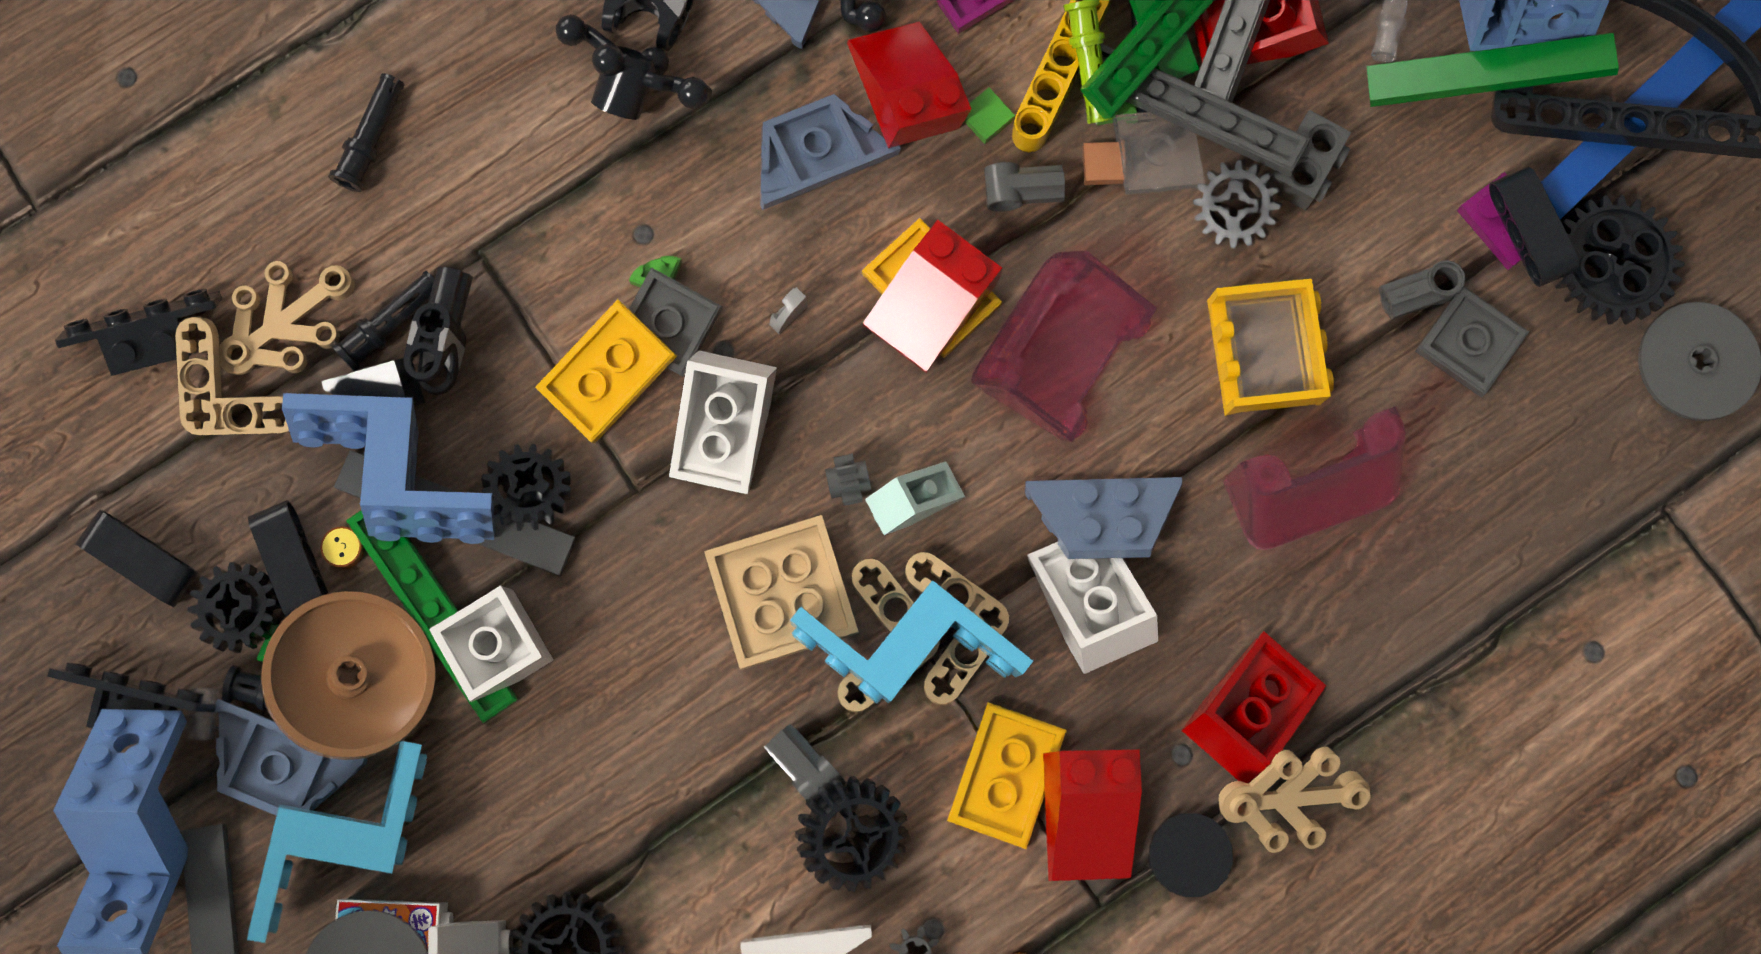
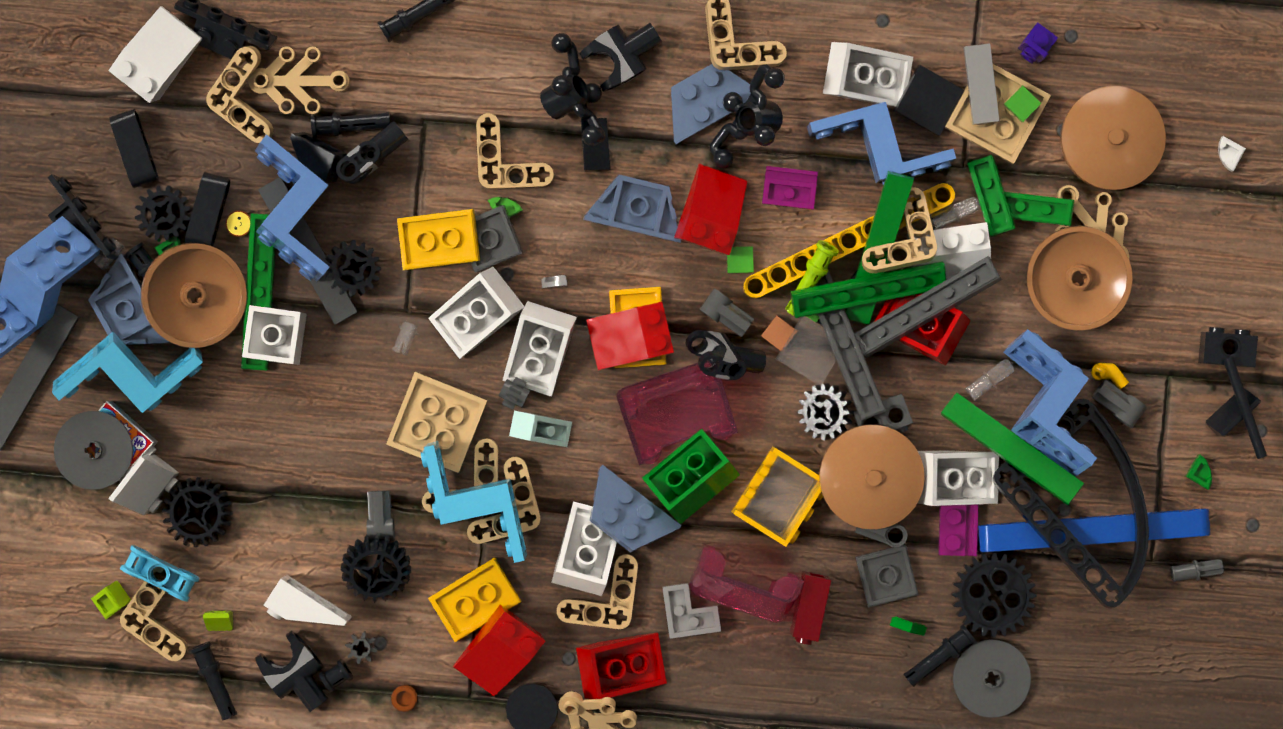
camera: 35 degrees right, 10 degrees up
(77, 421) = (155, 55): none -> white slope
(618, 232) = (503, 171): none -> tan beam
(659, 519) = (405, 336): none -> clear pin
(709, 124) = (596, 157): none -> black slope
(834, 401) = (539, 347): none -> white slope
(1064, 232) = (726, 359): none -> black connector
(1144, 407) = (691, 476): none -> green slope
(1181, 637) = (615, 604): none -> tan beam
(1276, 587) = (684, 619): none -> light grey plate
(1359, 230) = (871, 476): none -> medium nougat dish
(1432, 454) = (810, 608): none -> dark red brick
(1451, 161) = (959, 477): none -> white slope
(1534, 226) = (961, 545): black beam -> none
(1549, 378) = (911, 627): none -> green tile
(1621, 366) = (950, 648): none -> black pin

